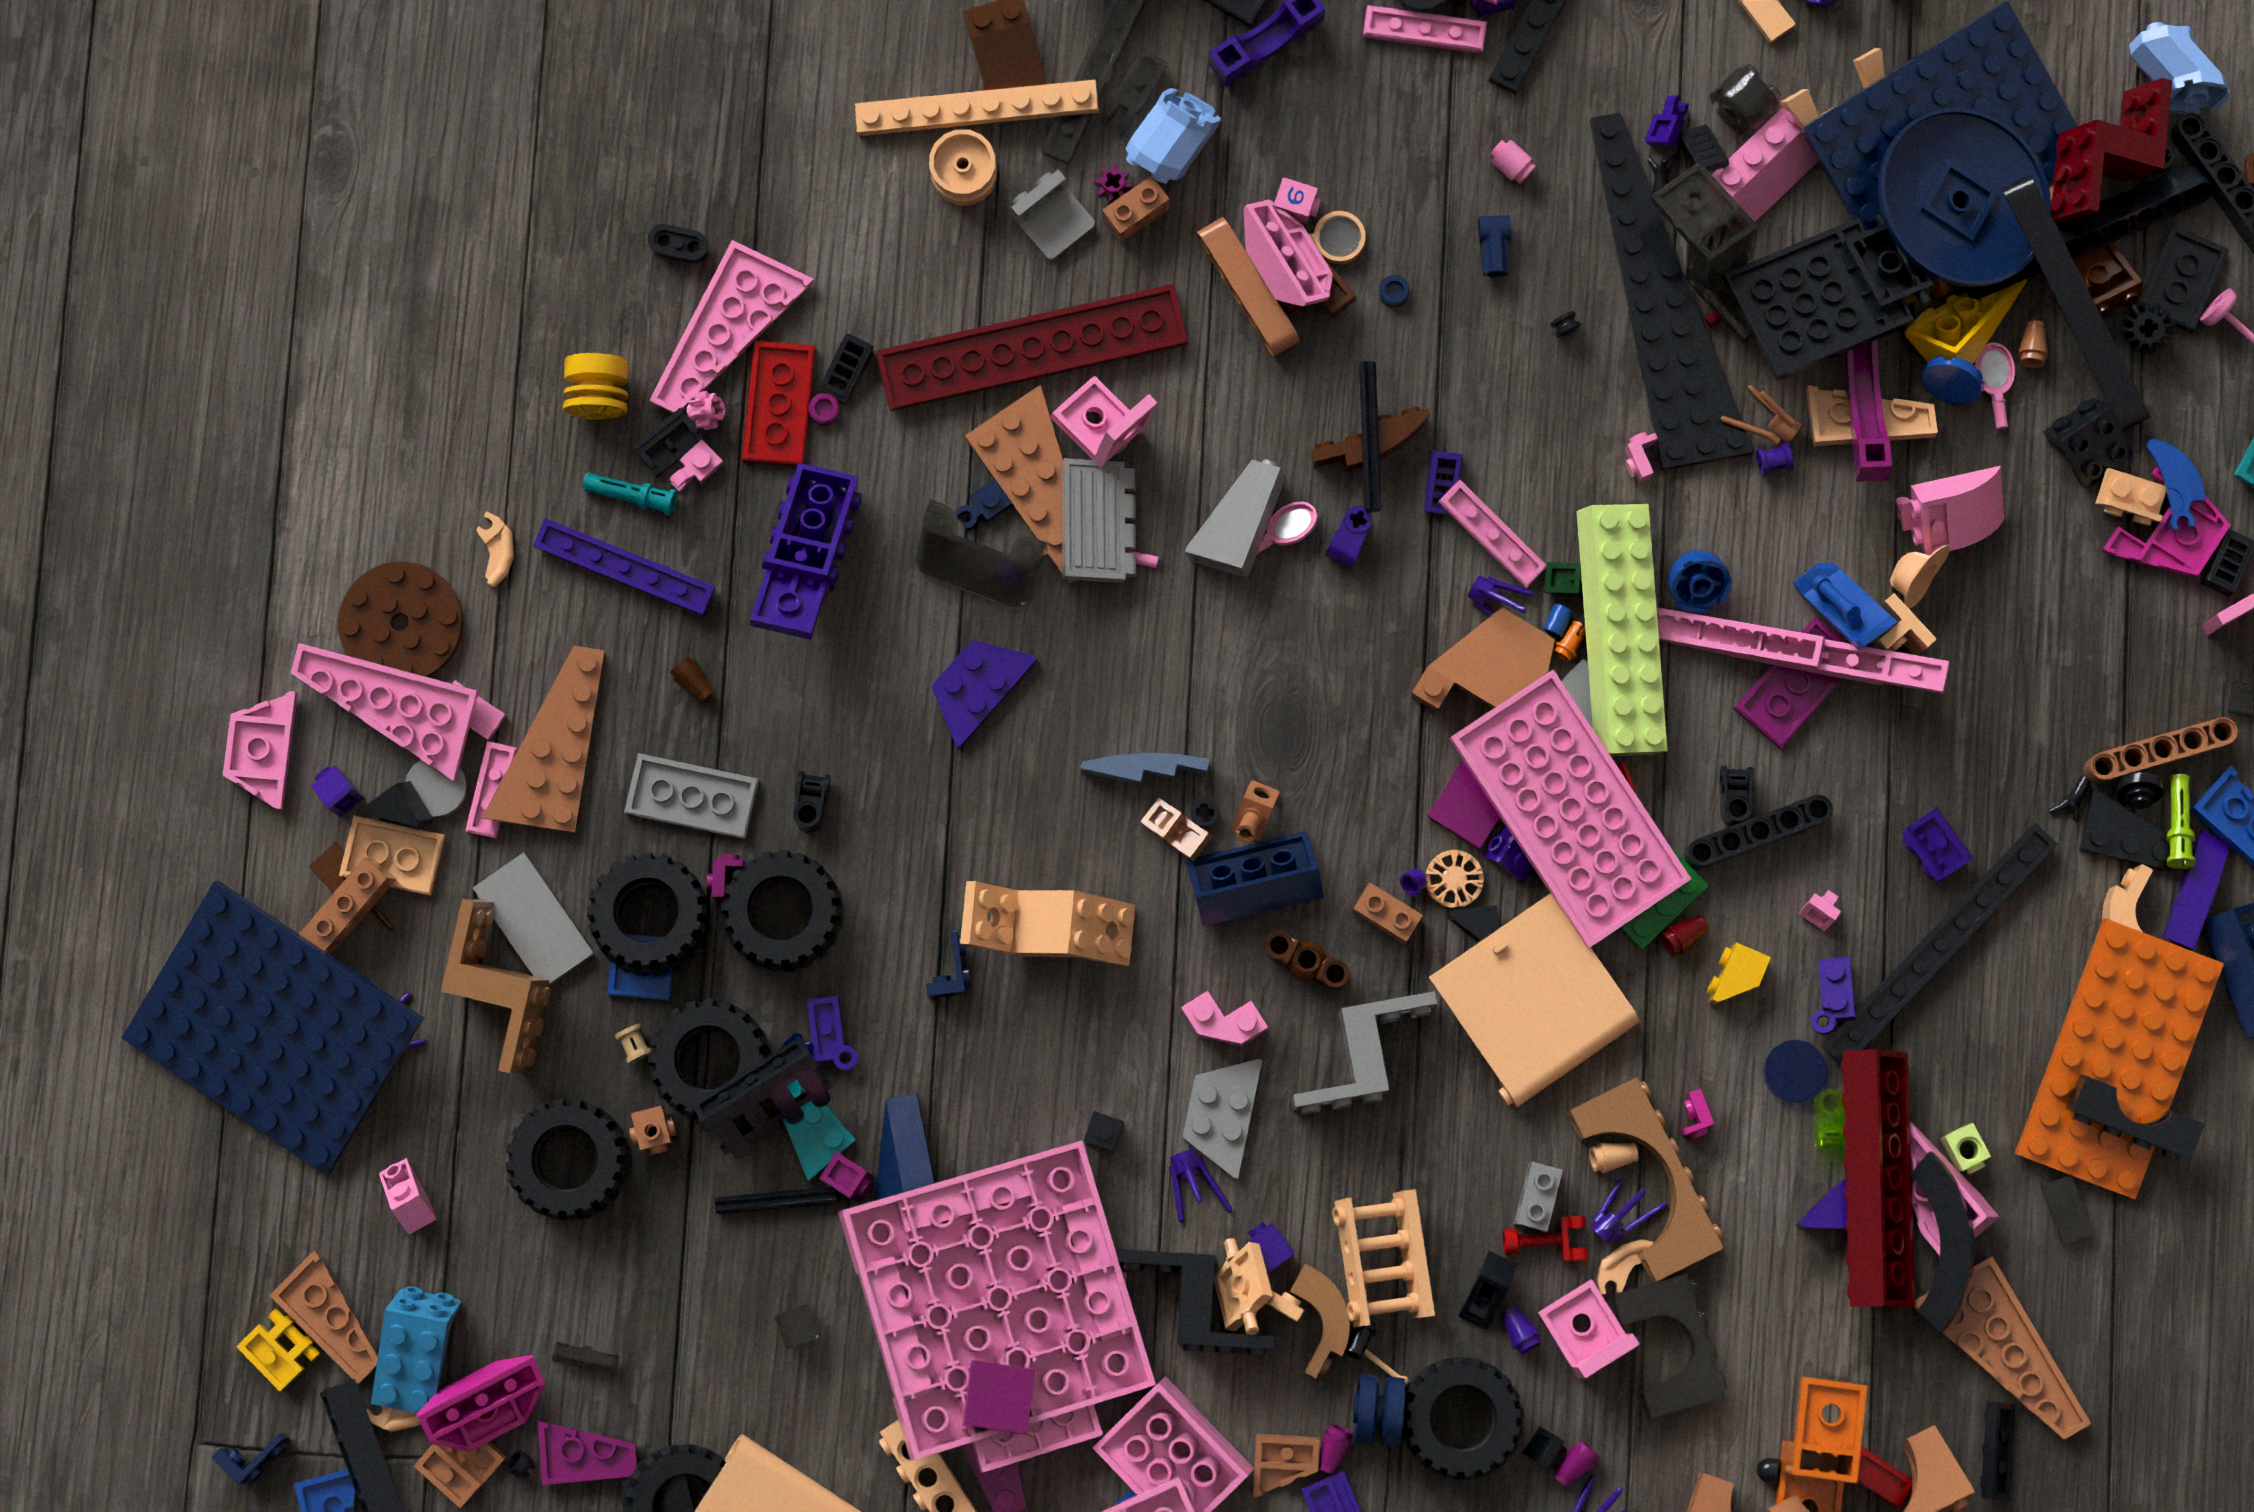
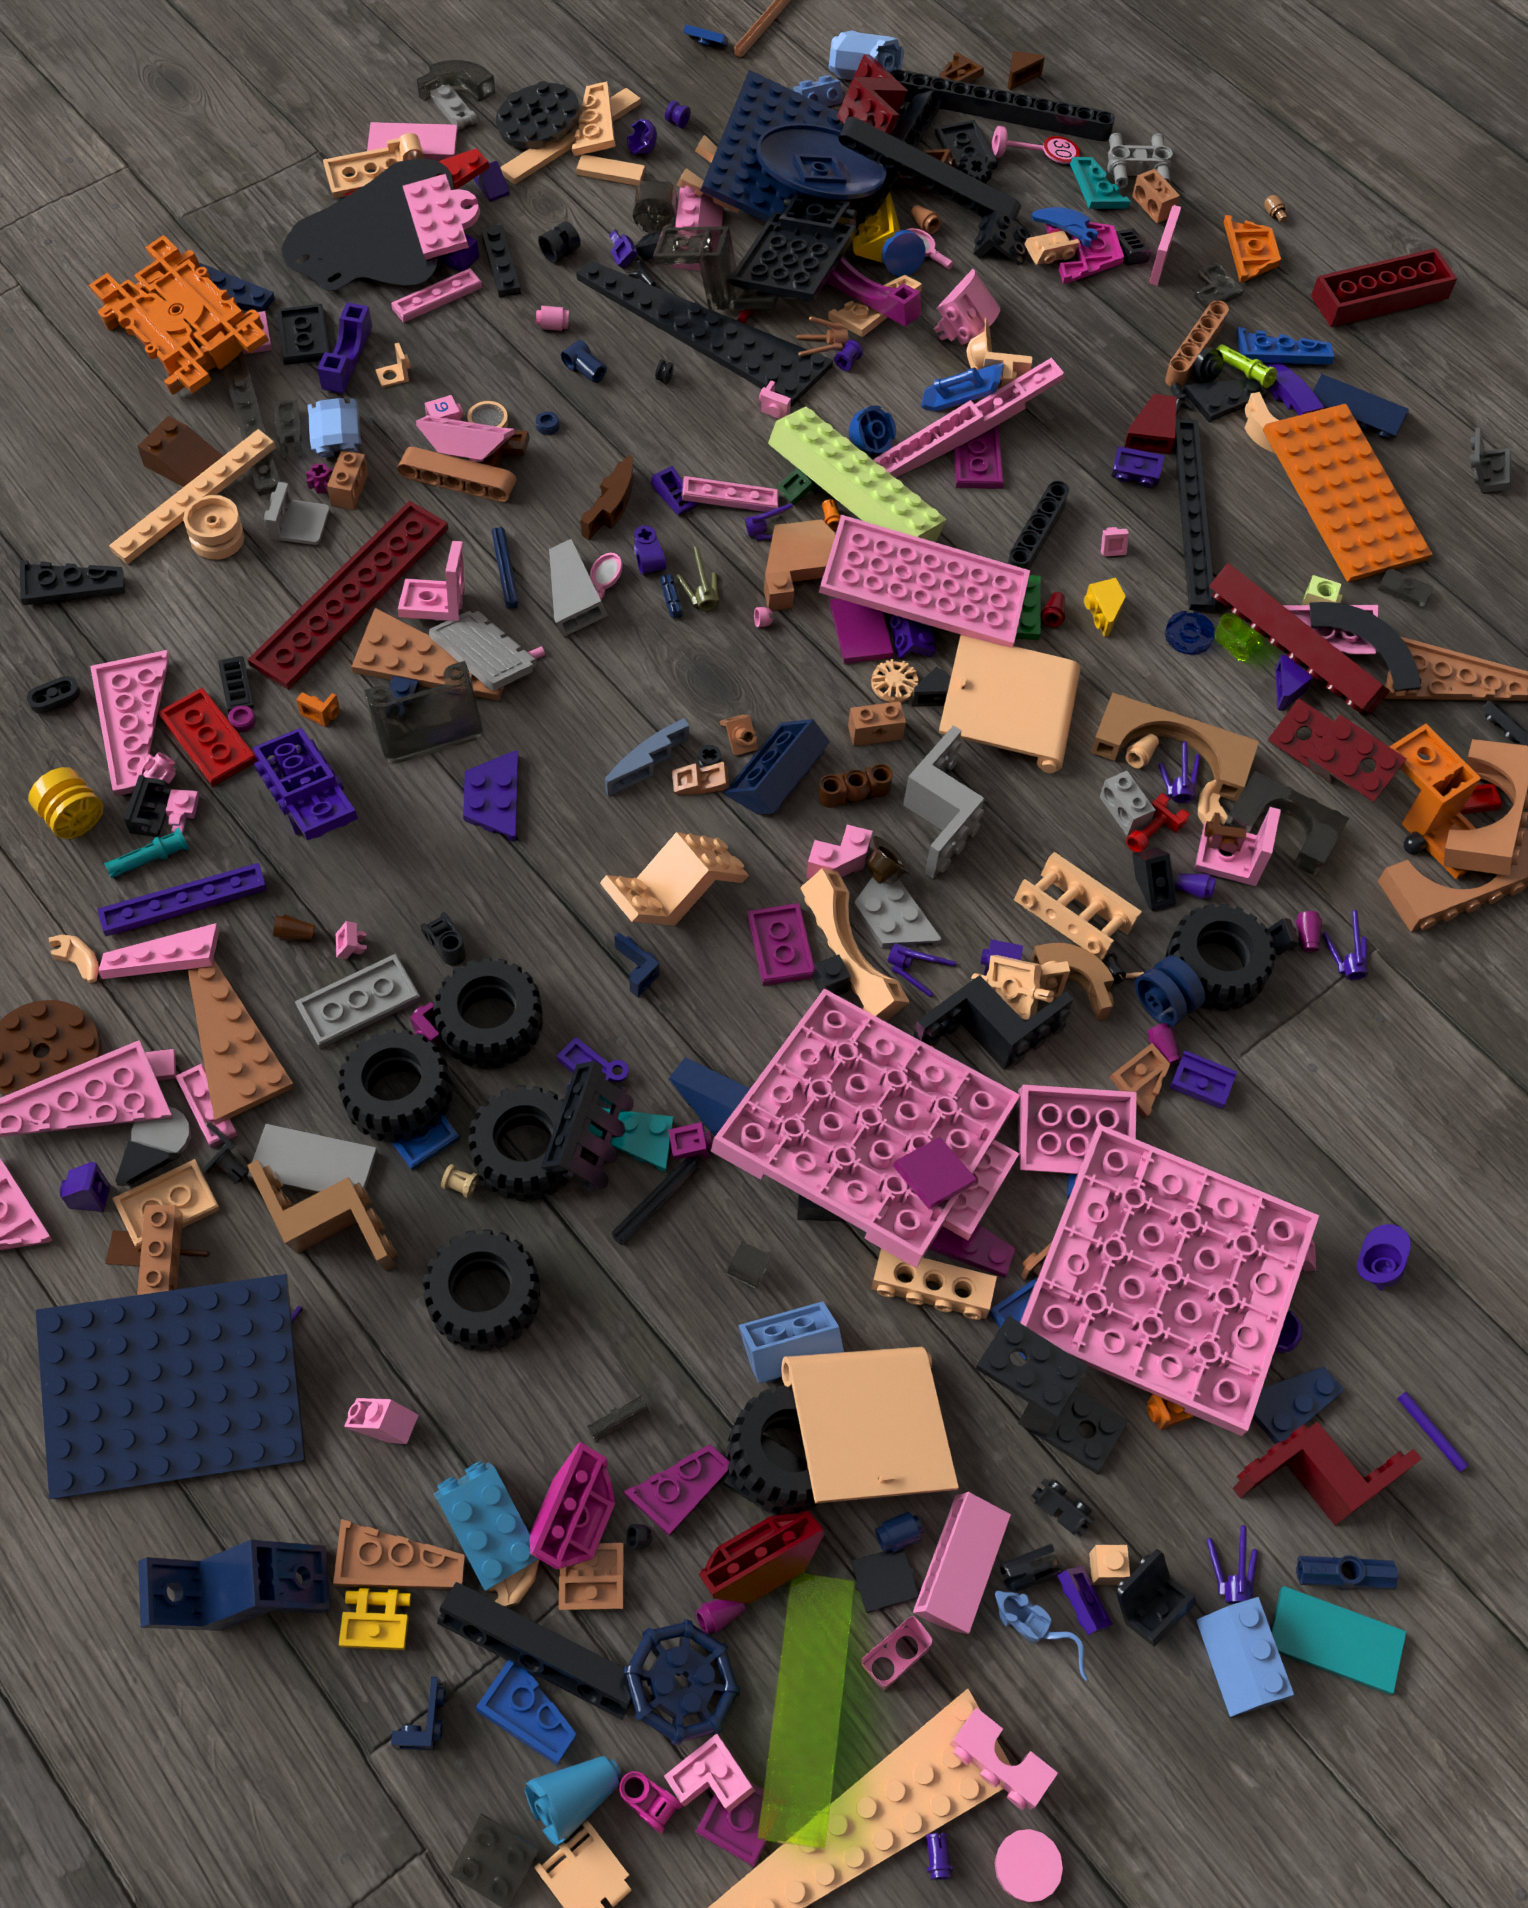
camera: 50 degrees left, 20 degrees down
(194, 1238) = (233, 1585): none -> dark blue bracket
(464, 856) = (223, 1159): none -> black bracket
(569, 614) = (169, 953): none -> bright pink wing
(644, 1122) = (525, 1221): nougat brick -> none
(727, 731) = (347, 940): none -> bright pink tile
(774, 1417) = (790, 1333): none -> medium blue slope
(779, 112) = (59, 583): none -> black wing
(893, 456) = (316, 710): none -> orange bracket
(1096, 1057) = (781, 944): none -> magenta tile
(1167, 1061) = (829, 902): none -> light nougat arch
(1202, 437) = (505, 568): none -> dark blue axle
(1257, 1066) = (886, 862): none -> dark brown piece
(1308, 99) = (399, 369): none -> light nougat bracket
(1330, 603) = (671, 596): none -> dark blue axle
(1360, 634) = (705, 596): none -> olive plant
(1370, 436) = (609, 487): black axle -> none
(1395, 702) = (761, 617): none -> bright pink hinge
(1416, 884) = (878, 699): dark purple hinge -> none
(1558, 620) = (813, 509): blue hinge -> none
(1585, 1318) = (1224, 837): none -> reddish brown bracket
(1595, 64) = (559, 241): none -> black wheel
(1697, 1108) = (1164, 688): dark pink bracket -> none
(1736, 788) = (1006, 521): black piece -> none
(1771, 1331) = (1337, 750): none -> dark red bracket
(1836, 994) = (1168, 574): dark purple hinge -> none
(2007, 812) = (1154, 426): none -> dark red slope
(2088, 69) = (825, 91): none -> medium blue bracket
(2171, 1132) = (1366, 510): black arch -> none

